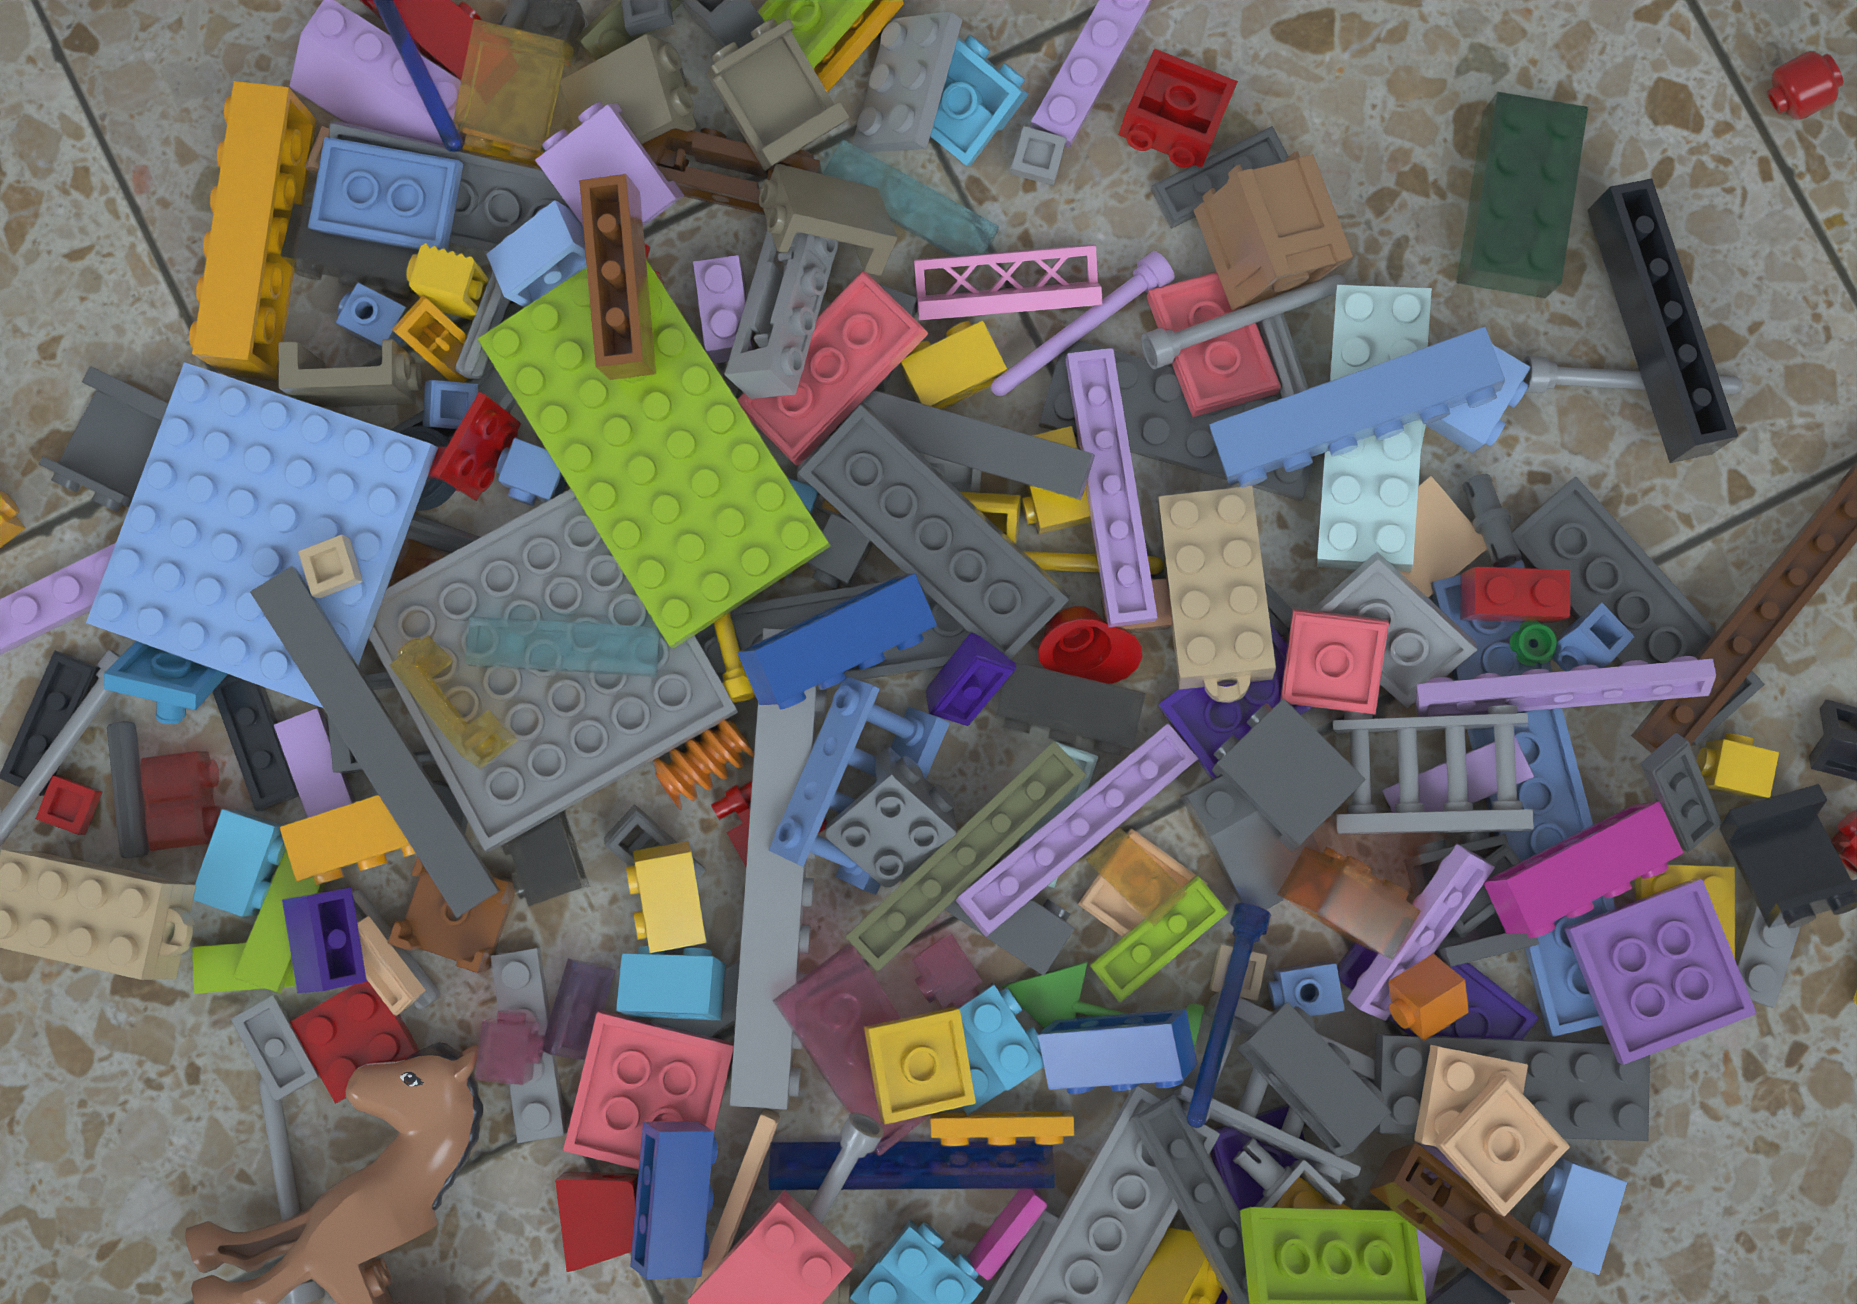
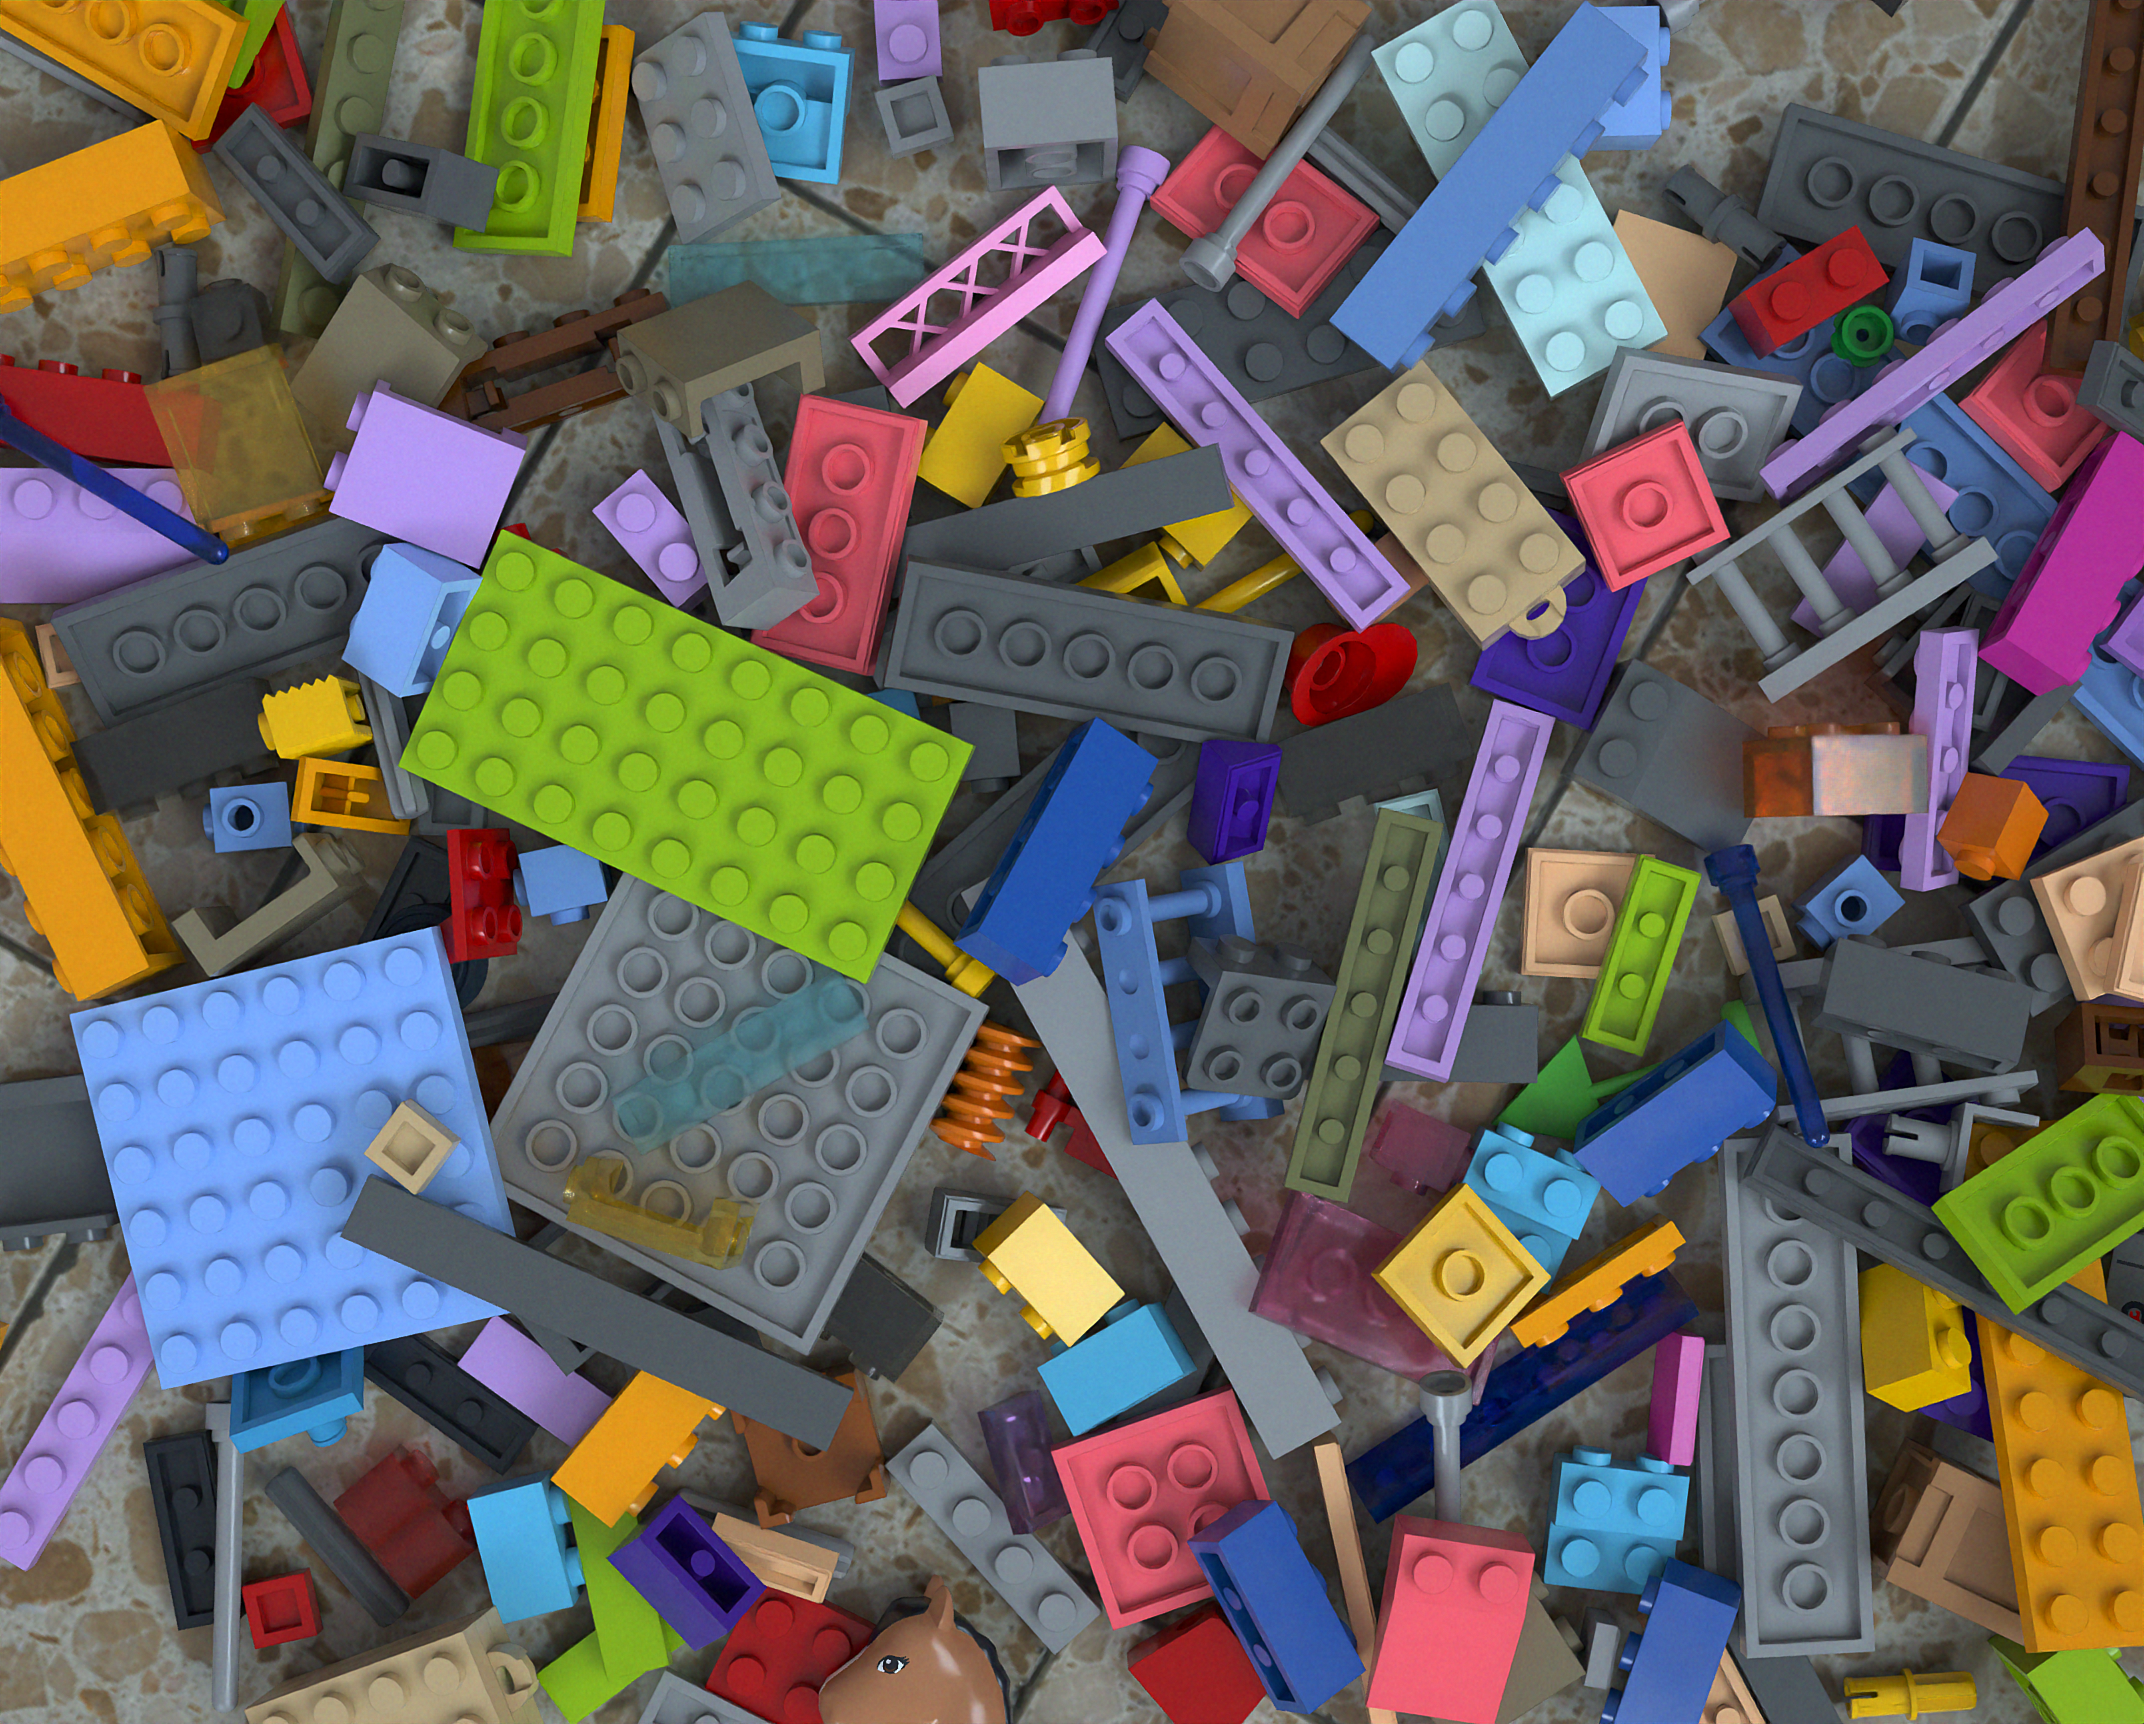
camera: 35 degrees left, 5 degrees up
(385, 195) = (174, 664): medium blue tile -> none
(447, 403) = (412, 863): medium blue slope -> none
(509, 1048) = (979, 1557): clear pink brick -> none
(617, 277) = (523, 591): dark orange brick -> none
(774, 93) = (560, 248): dark tan panel -> none
(988, 401) = (1050, 457): none -> yellow wheel
(1114, 202) = (1048, 121): none -> light grey brick
(1136, 876) = (1571, 901): clear yellow plate -> none
(1287, 772) = (1673, 670): dark grey panel -> none
(1612, 759) = (2034, 412): none -> coral tile

